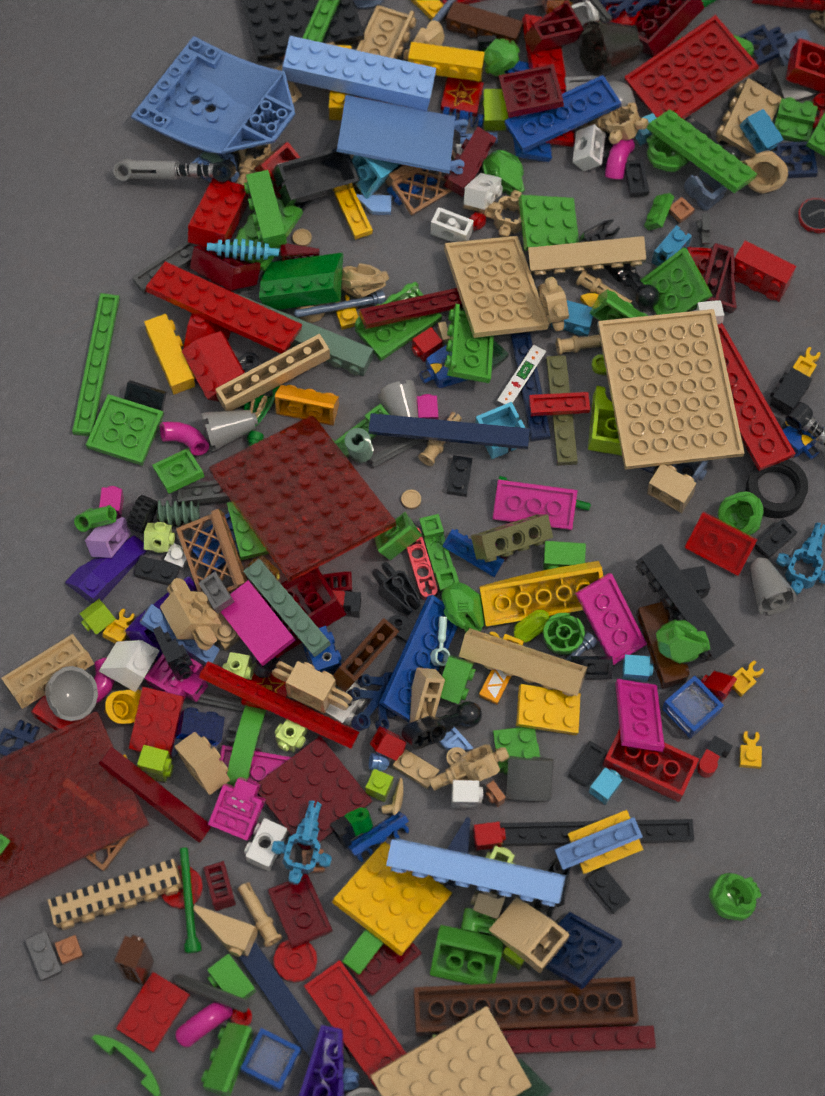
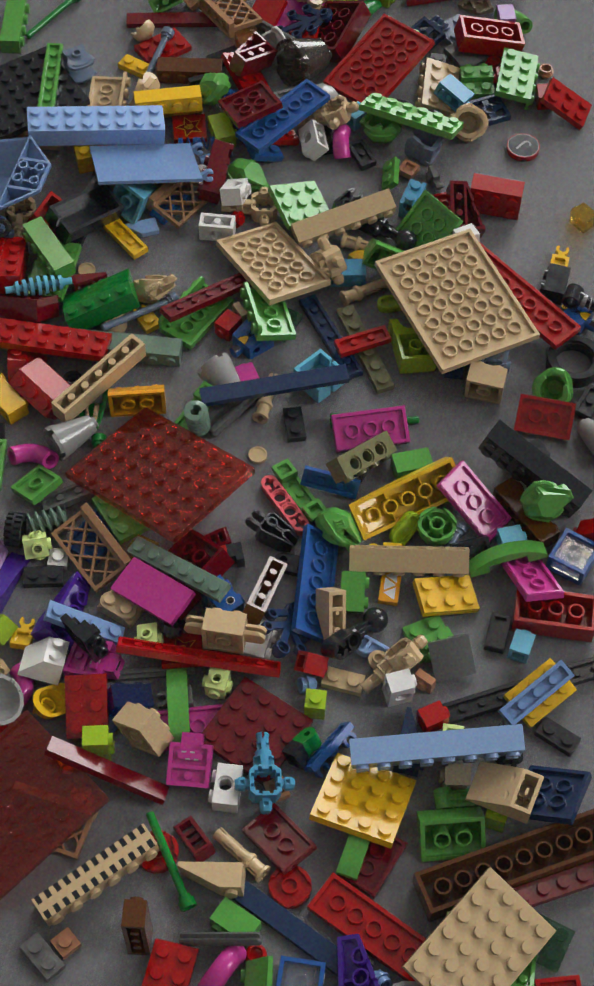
camera: 15 degrees left, 10 degrees down
(190, 614) = (90, 600): tan brick -> none
(216, 592) = (107, 575): flat silver plate -> none
(397, 538) = (257, 487): bright green slope -> none
(397, 800) = (336, 714): tan bar -> none
(441, 638) = (328, 560): light aqua piece -> none
(521, 375) = (320, 328): white sticker -> none
(624, 684) = (506, 552): none -> bright green slope

